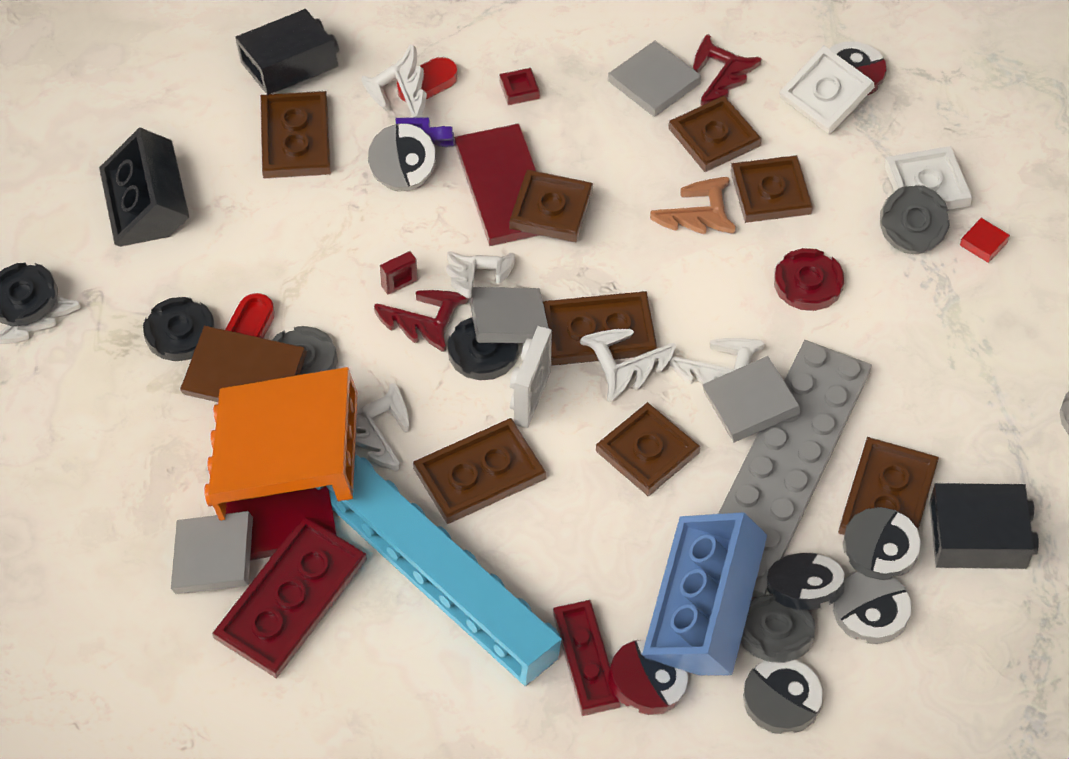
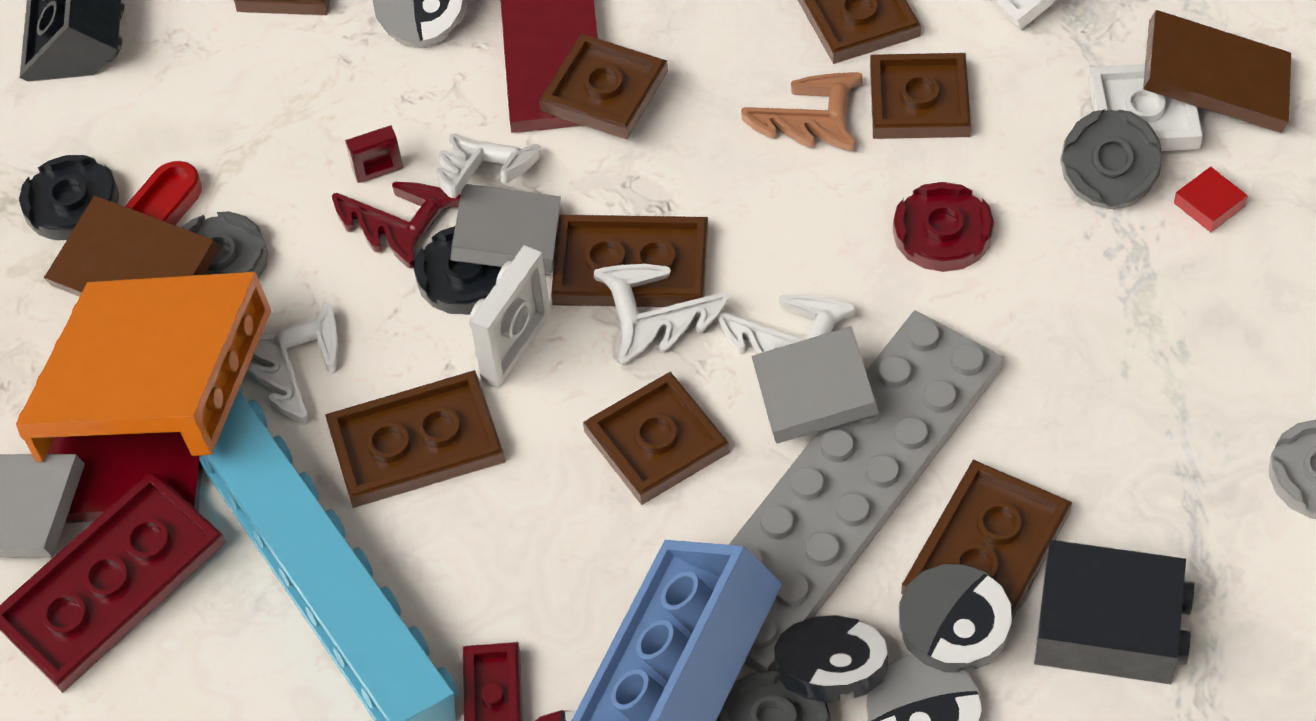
camera: 15 degrees right, 0 degrees up
(973, 150) = (1218, 71): none -> reddish brown tile

